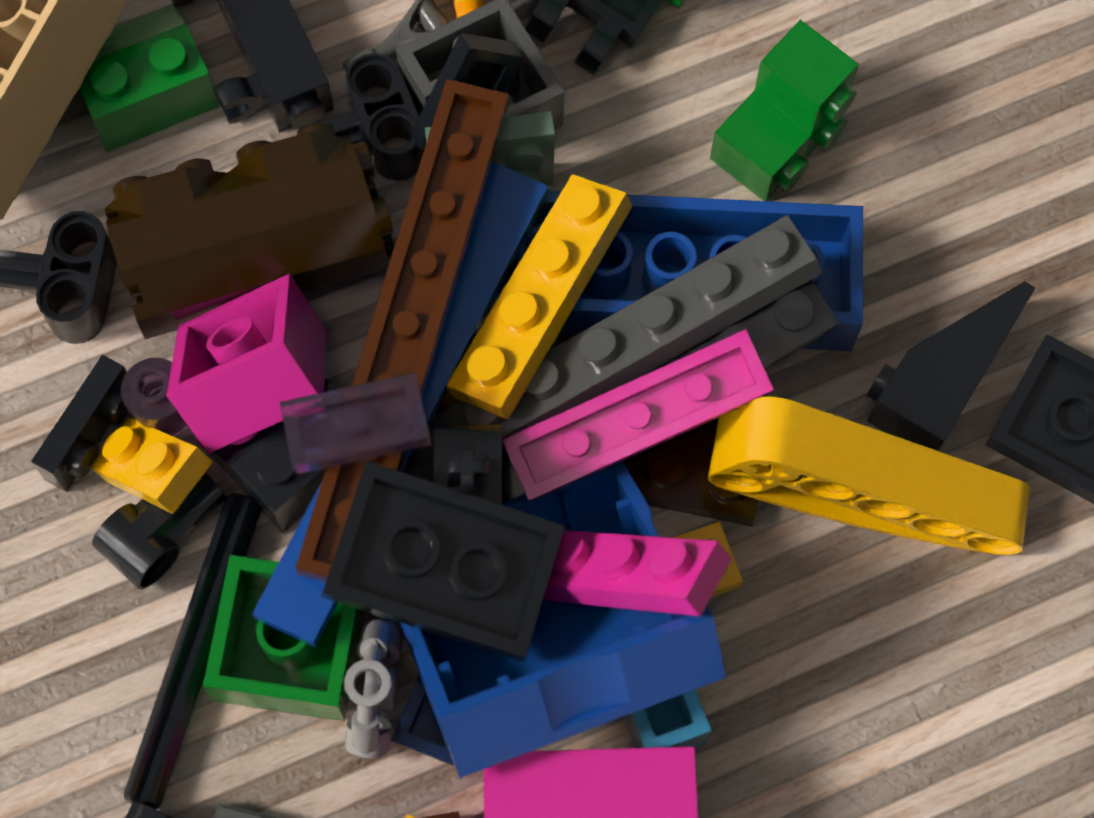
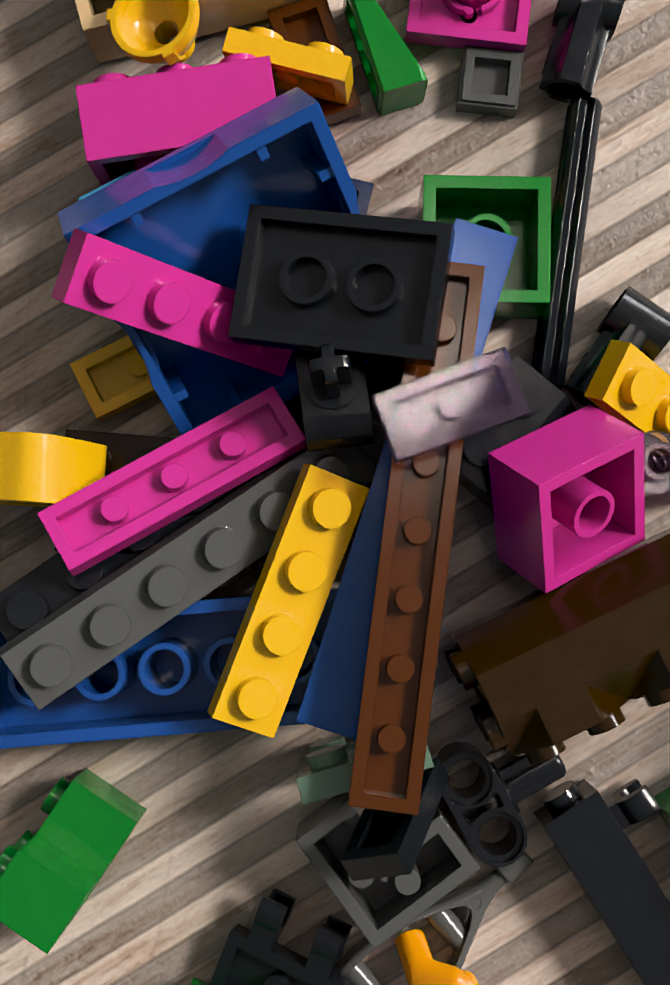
camera: 175 degrees right, 15 degrees up
(377, 645) = (395, 185): light grey piece -> none

